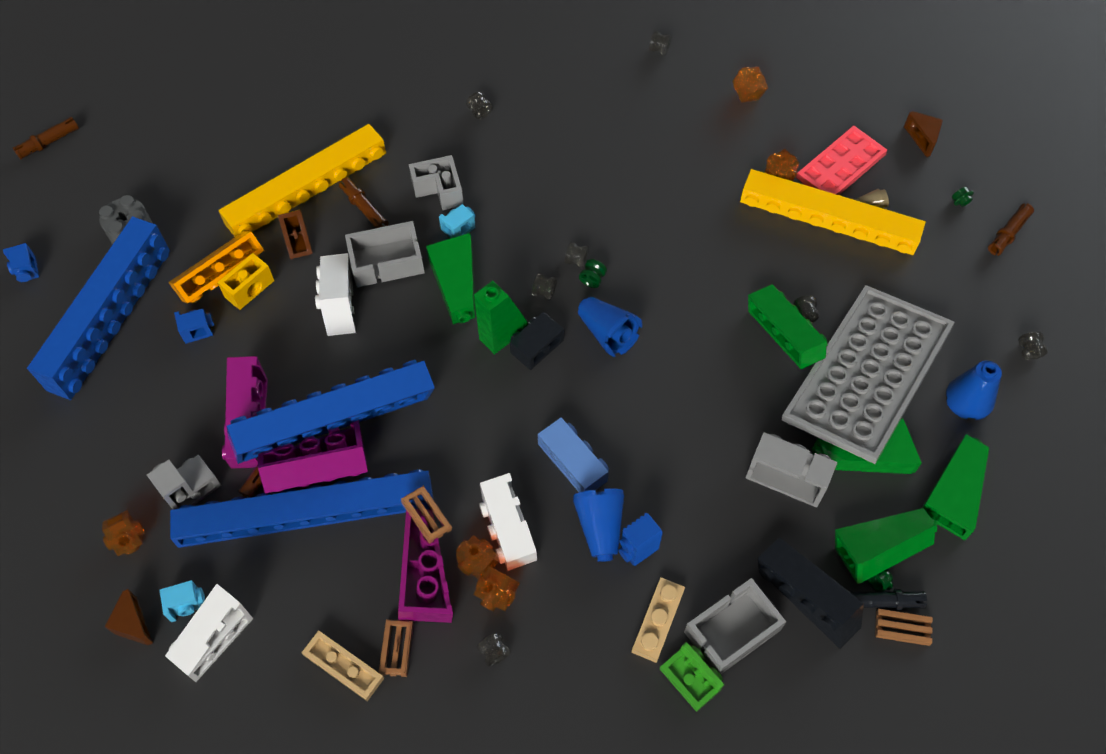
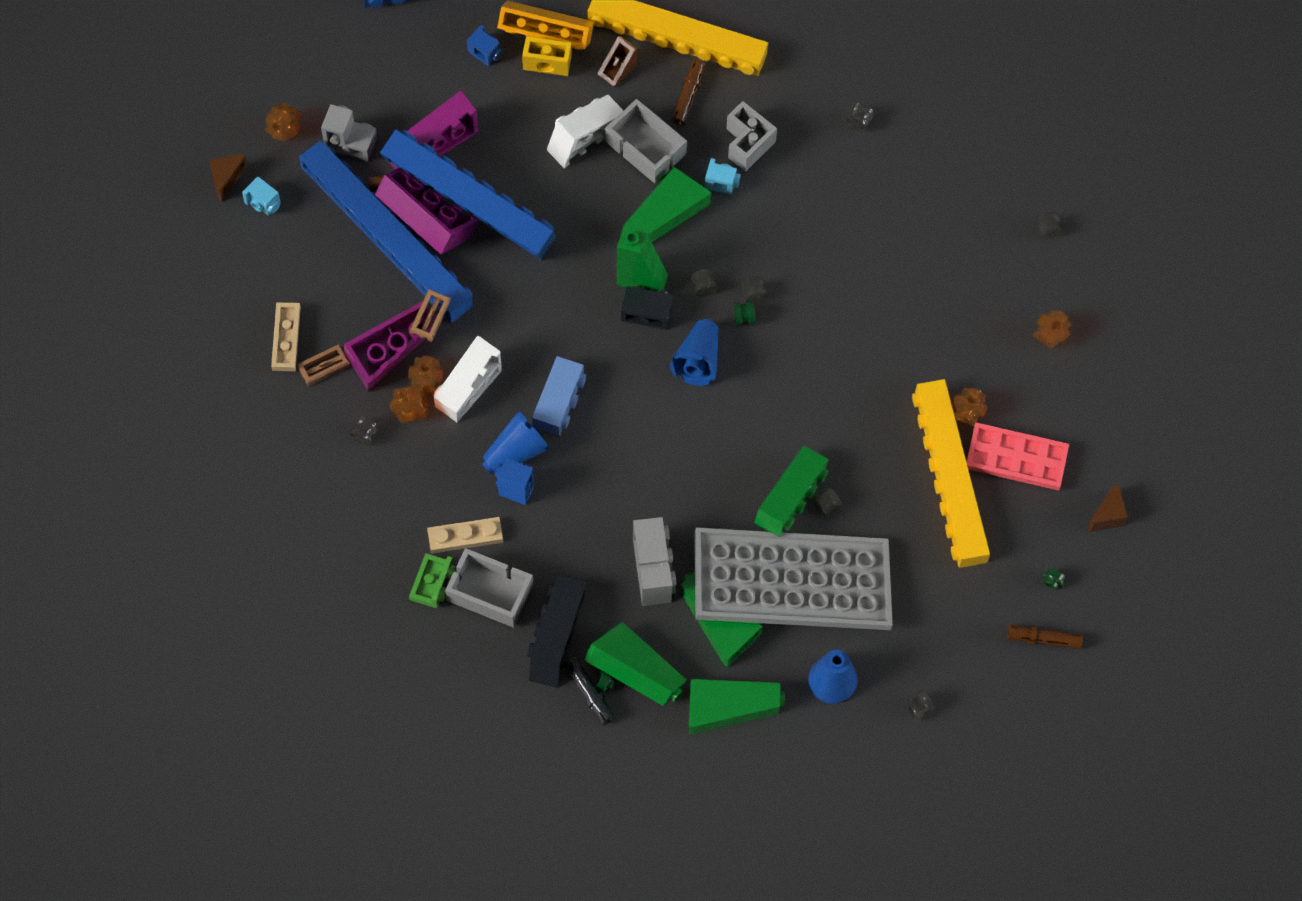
camera: 55 degrees right, 5 degrees up
(208, 633) = (250, 232): white wedge -> none
(876, 198) = (990, 502): dark tan cone -> none
(913, 618) = (568, 699): medium nougat tile -> none

